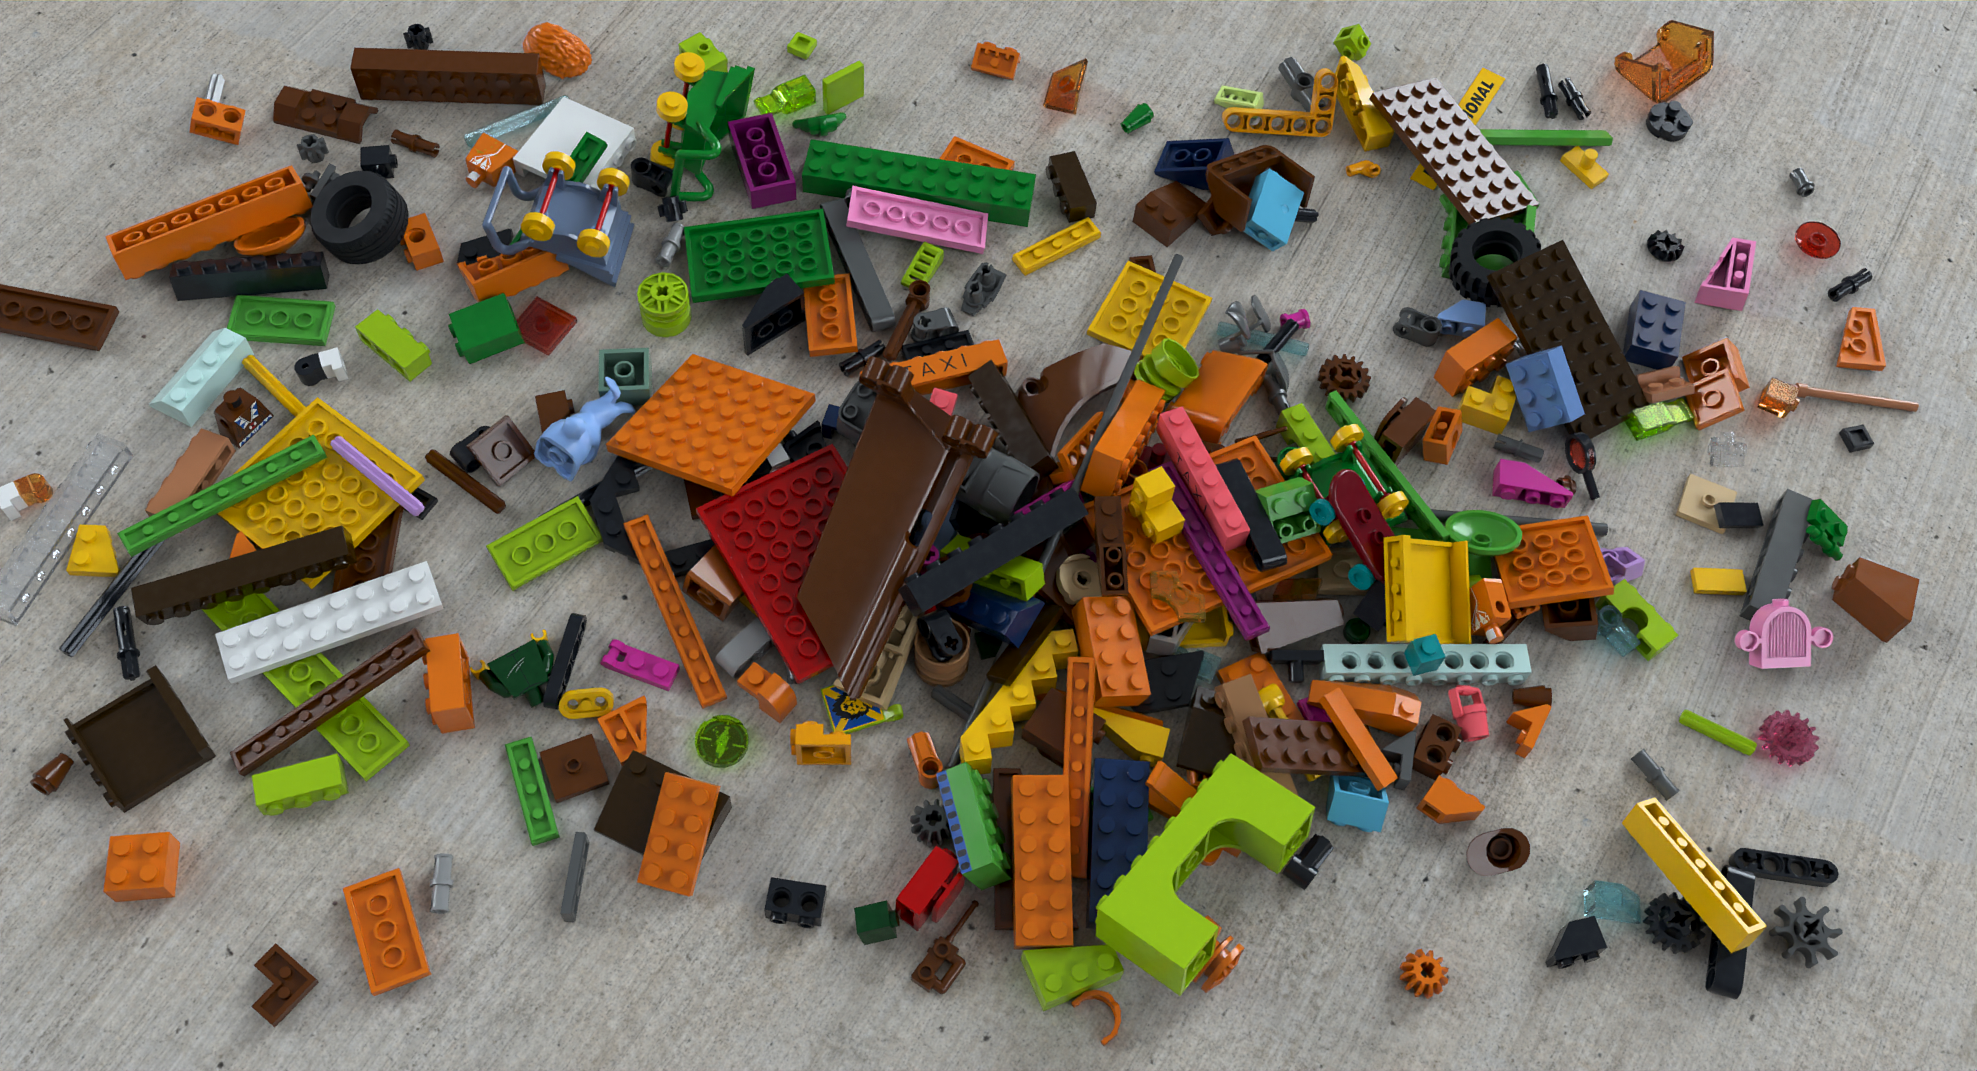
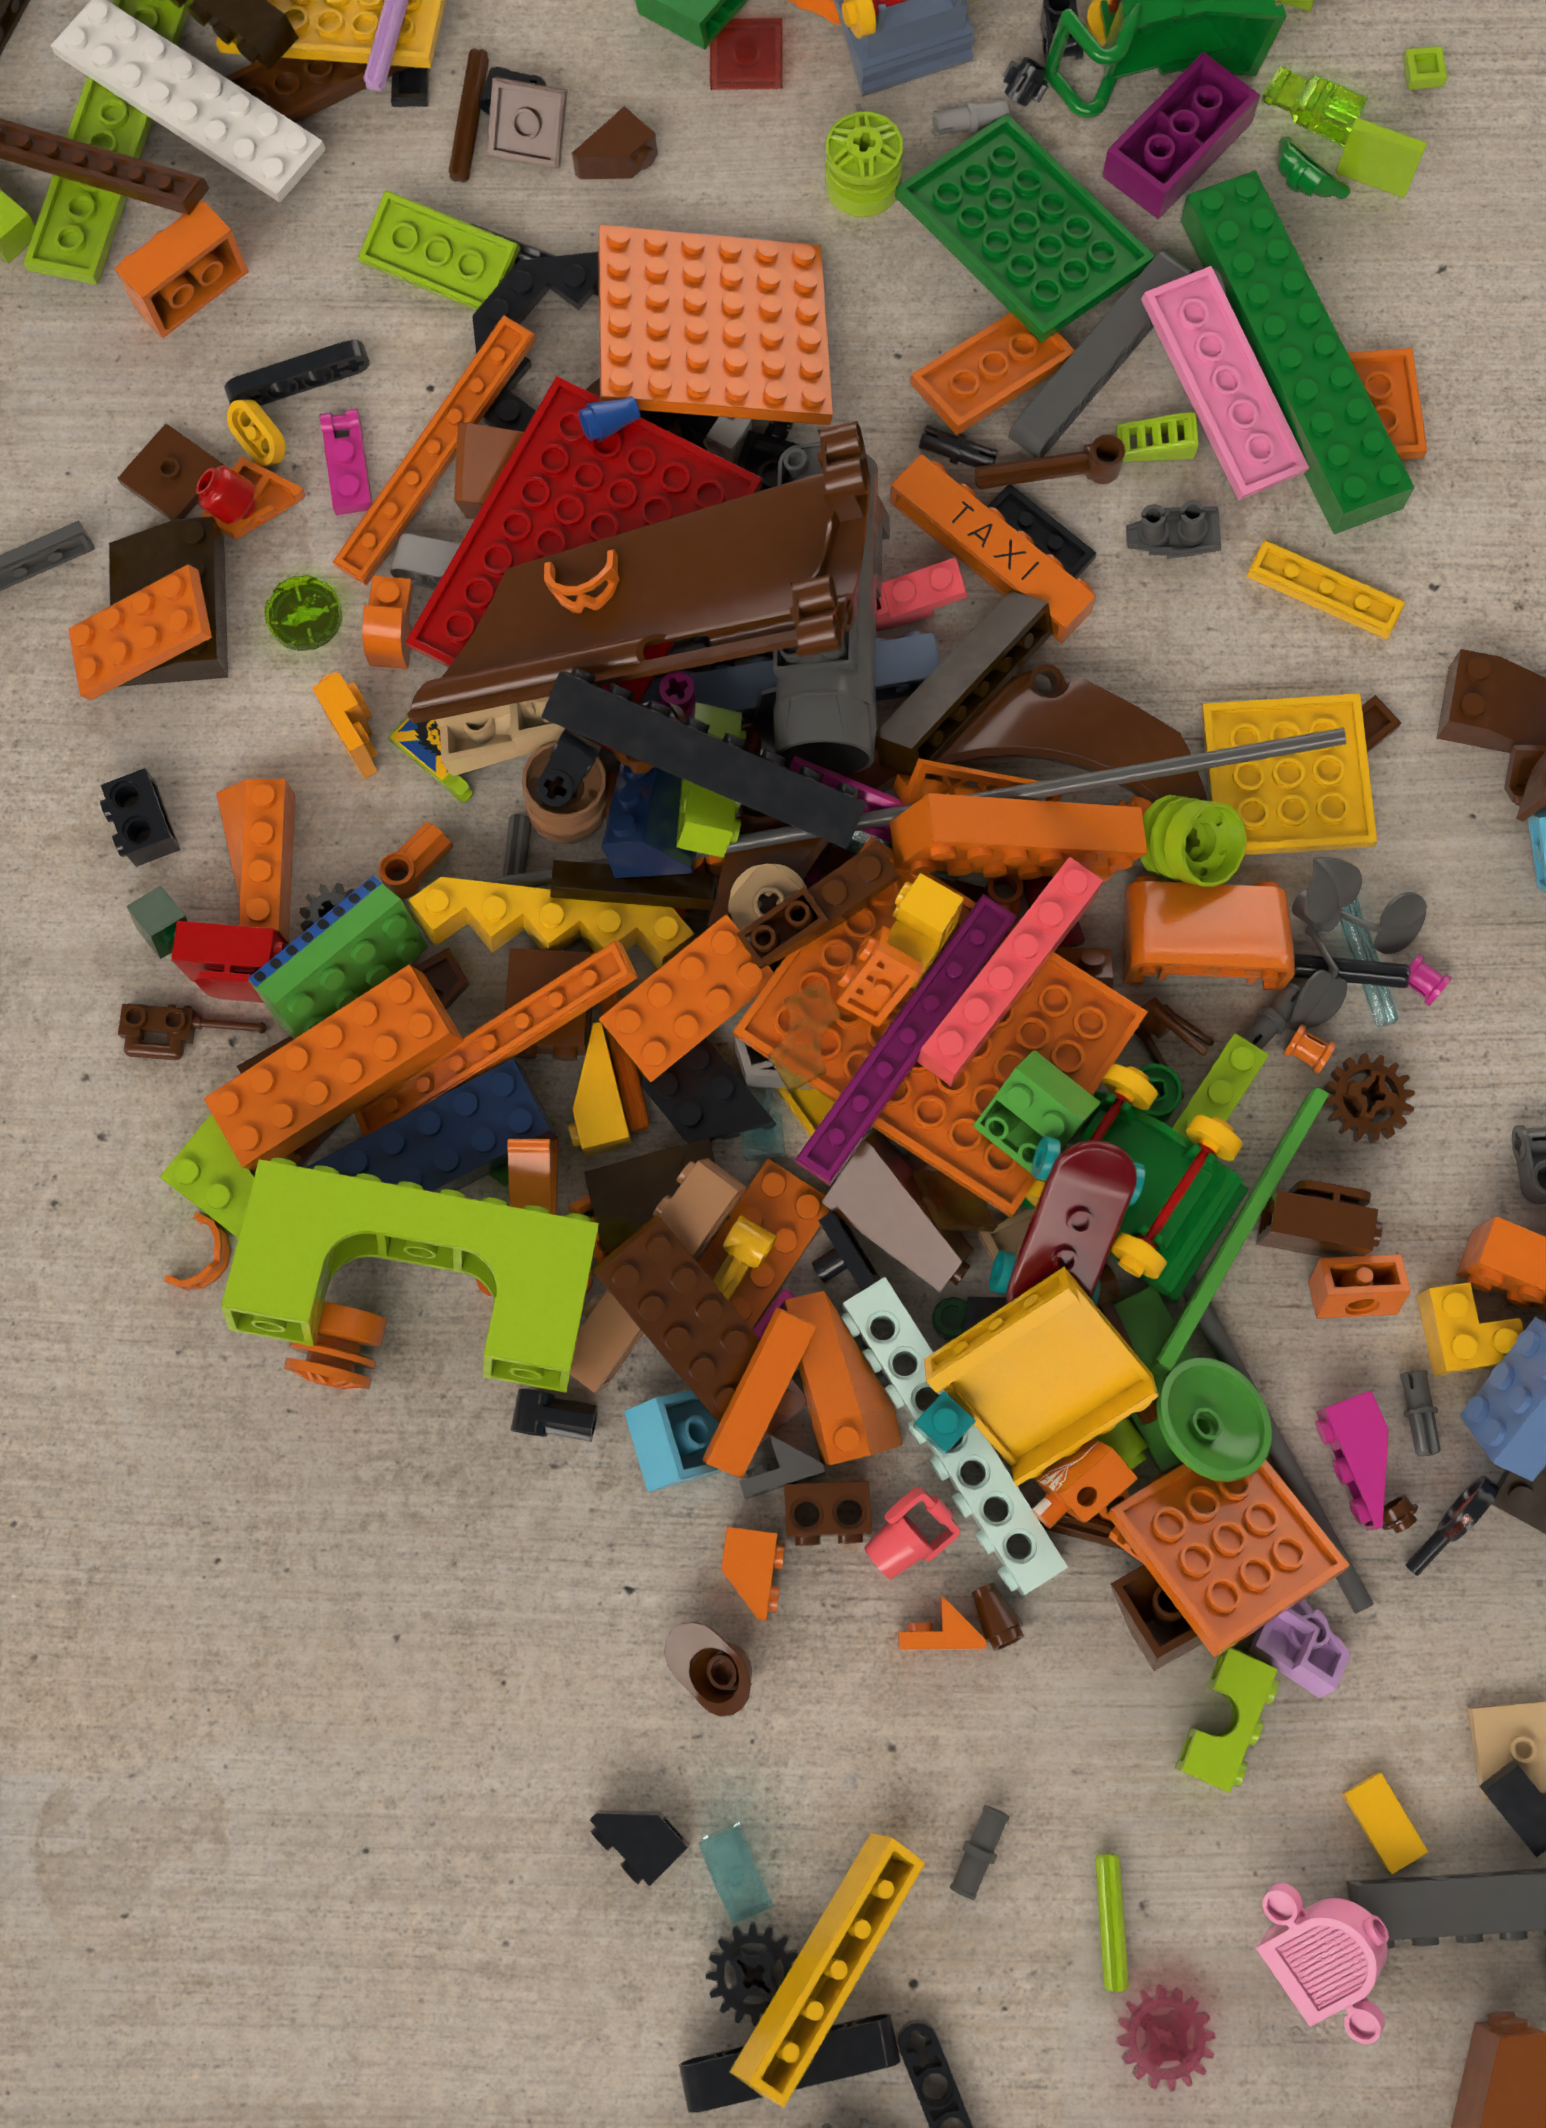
camera: 70 degrees right, 15 degrees up
(519, 671) = (252, 335): dark green torso -> none
(532, 791) = (117, 447): bright green tile -> none
(578, 437) = (577, 182): light blue animal -> none
(626, 733) = (226, 494): none -> red head
(630, 370) = (724, 187): sand green brick -> none
(745, 495) = (606, 417): none -> blue cone
(774, 313) = (934, 295): black slope -> none
(850, 561) = (608, 573): none -> orange helmet
(868, 845) = (260, 846): none -> orange wedge
(934, 324) = (1071, 505): dark grey piece -> none
(1071, 186) = (1439, 549): dark brown brick -> none
(1171, 538) = (877, 978): none -> orange bracket
(1262, 540) = (991, 1065): black beam -> none
(1303, 389) = (1309, 1049): none -> orange bush
(1412, 973) = (482, 1660): orange gear -> none
(1616, 631) = (1184, 1701): clear light blue piece -> none

